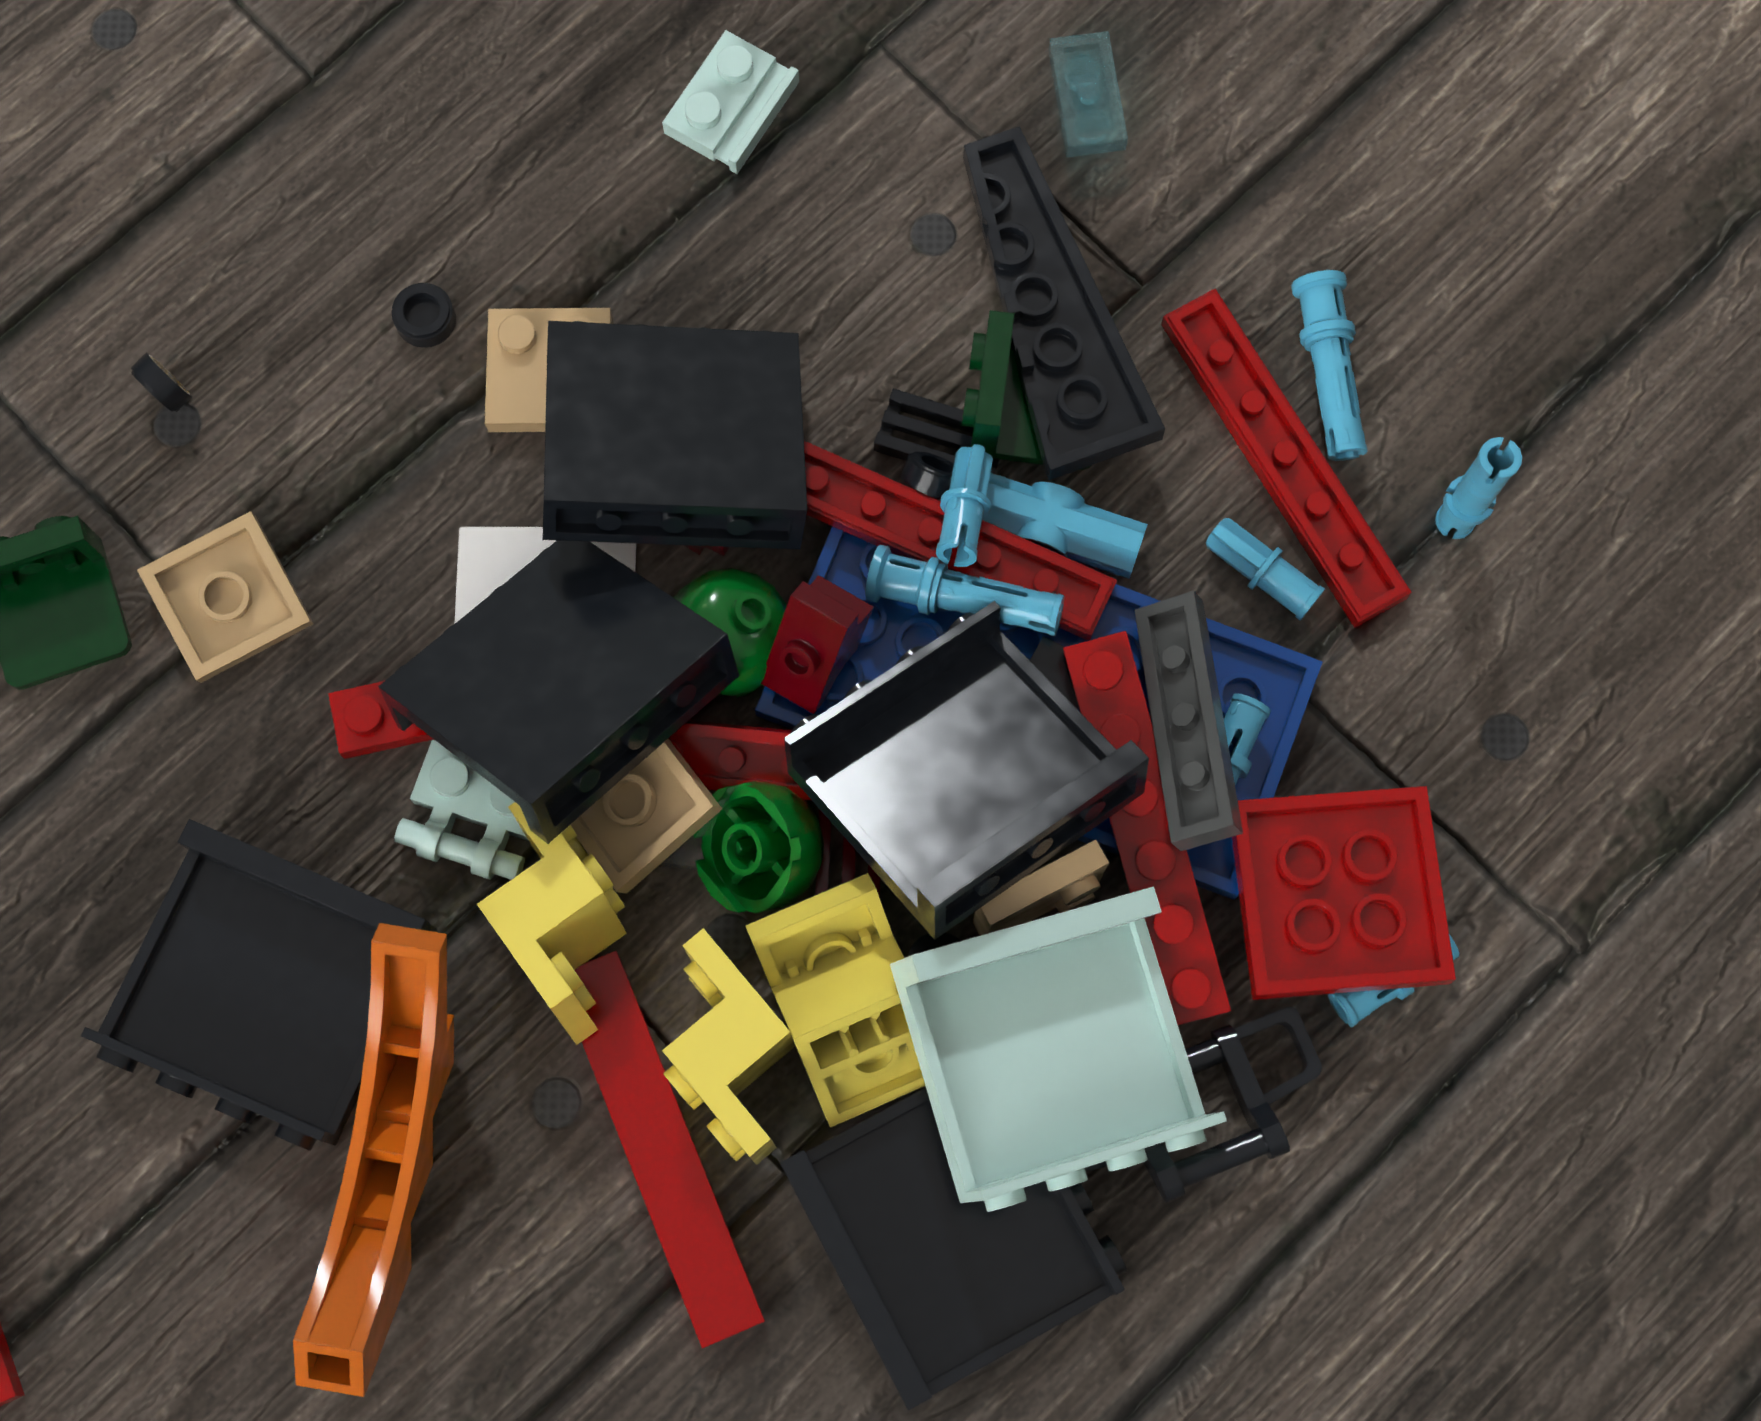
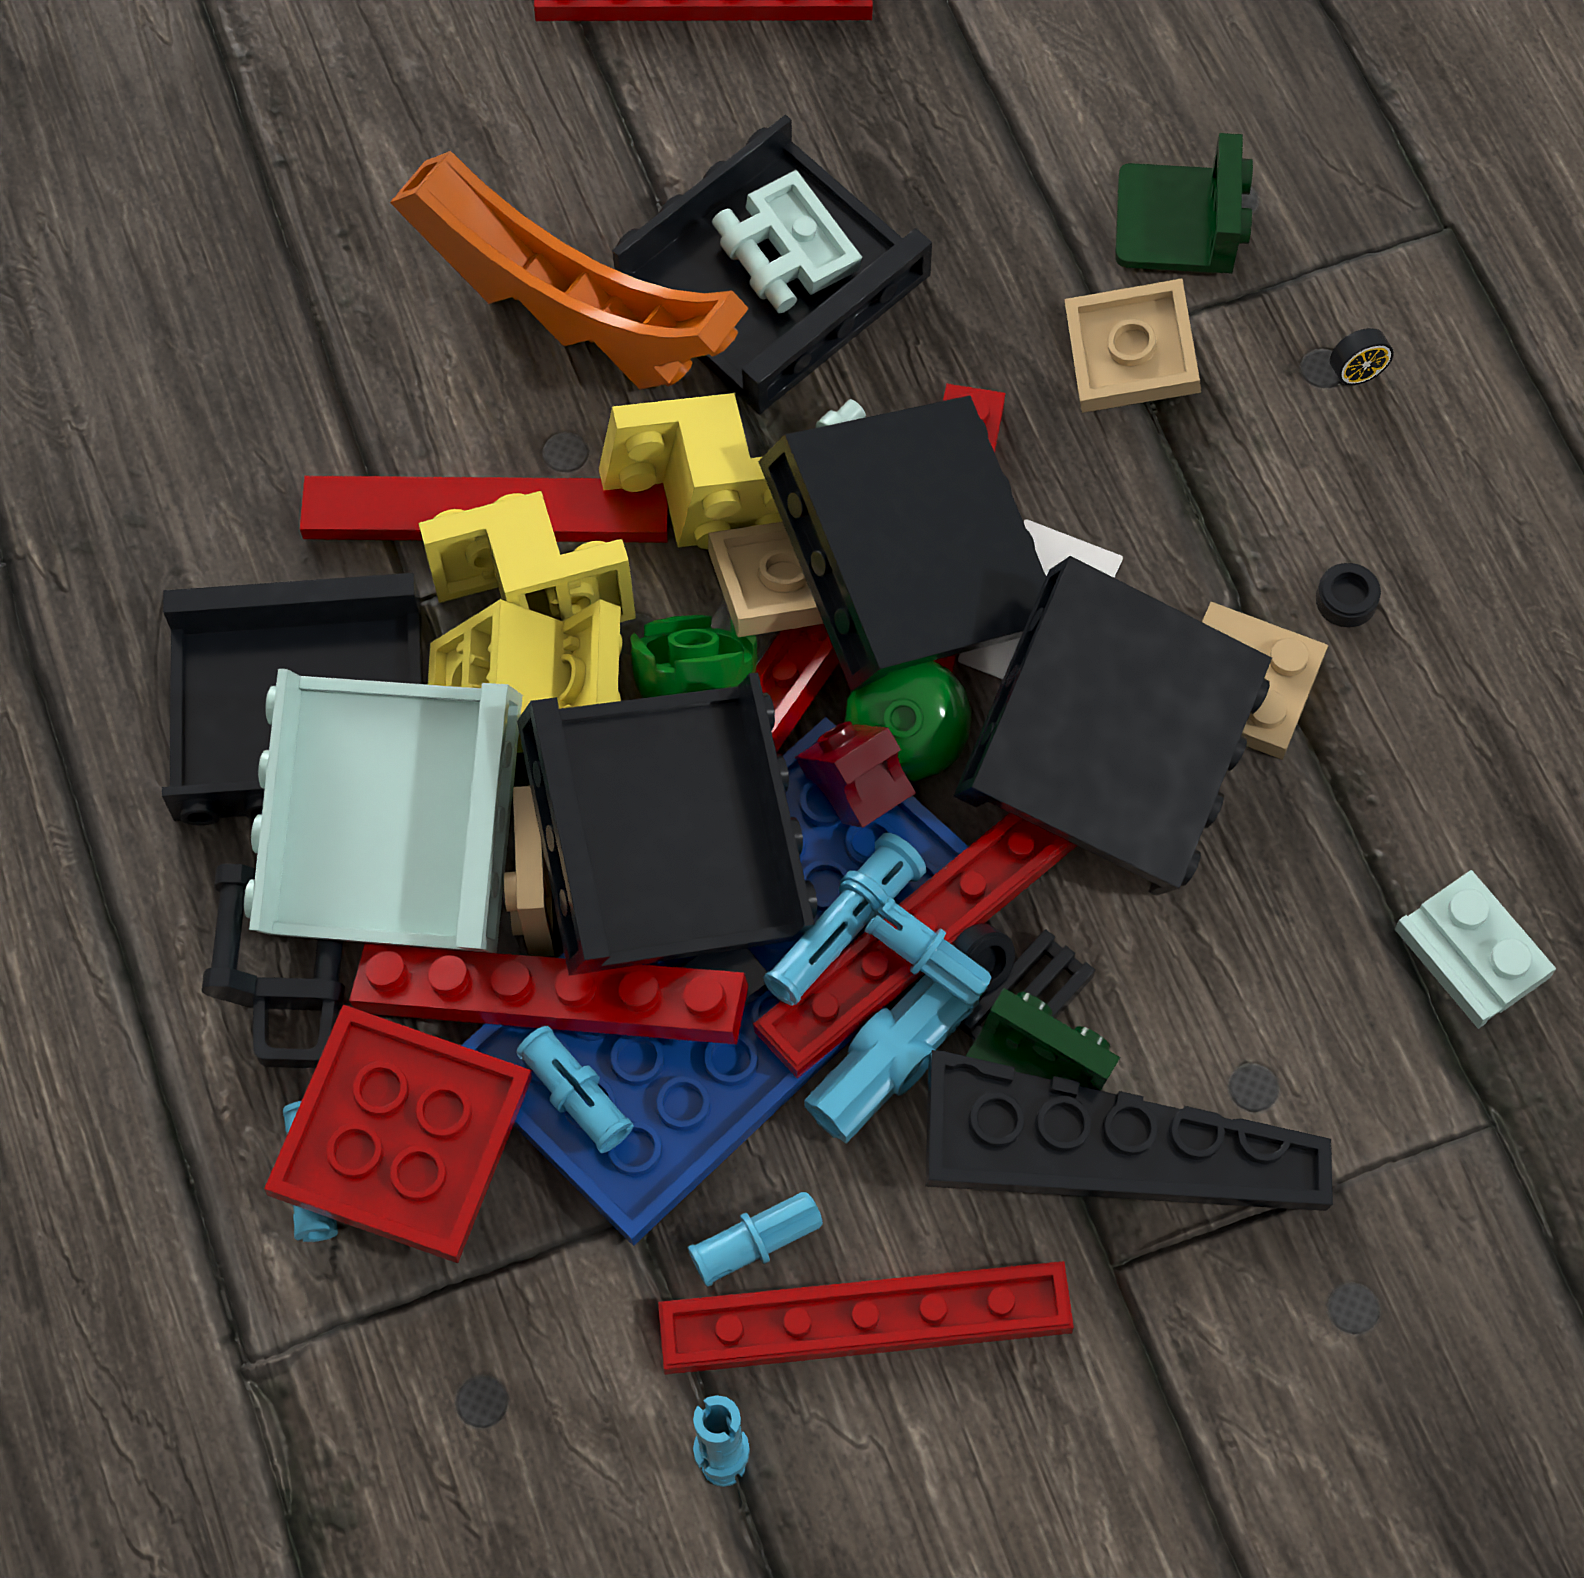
camera: 115 degrees right, 10 degrees down
(220, 960) = (802, 233): none -> light aqua plate
(1087, 94) = (1347, 1296): clear light blue plate -> none
(1188, 722) = (623, 1056): dark grey plate -> none
(1328, 339) = (970, 1415): medium azure pin -> none

